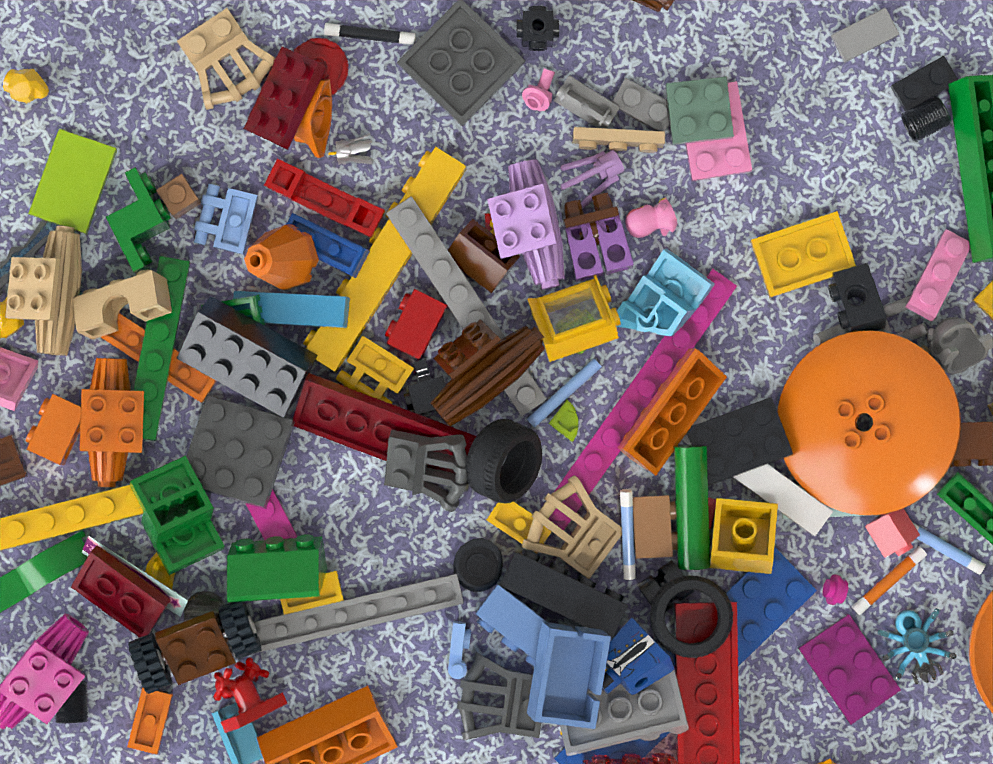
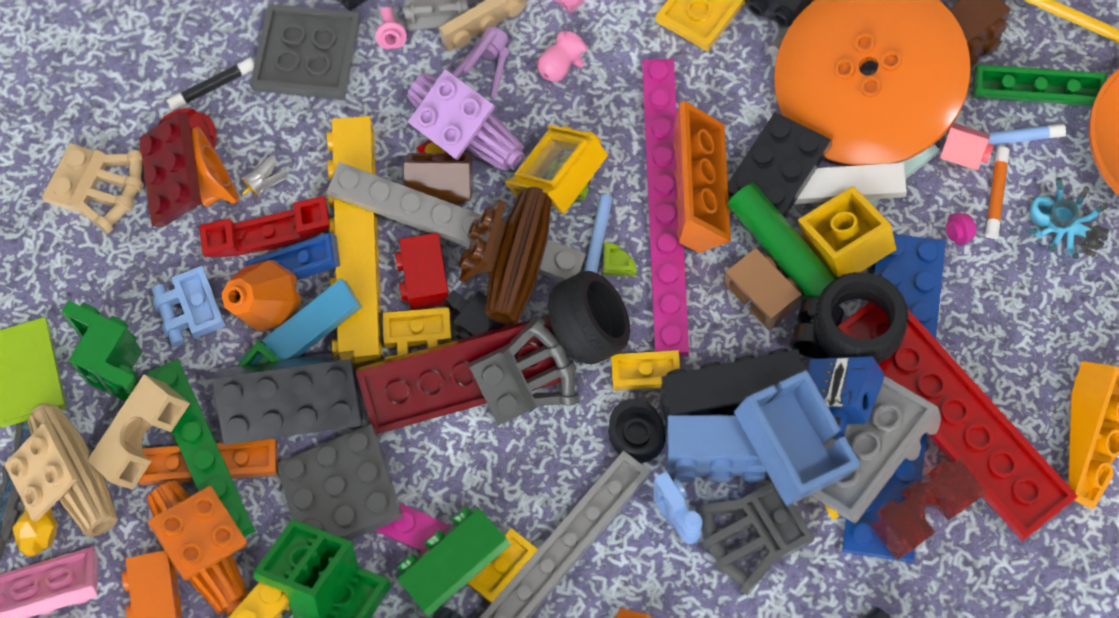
camera: 30 degrees left, 20 degrees down
(178, 196) = (132, 309): medium nougat brick -> none
(590, 539) = (717, 330): tan plate -> none
(595, 229) = (528, 100): medium lavender hips -> none
(627, 524) = (747, 308): light blue bar -> none
(665, 297) = (621, 102): medium azure slope -> none
(849, 669) = (1029, 285): magenta plate -> none

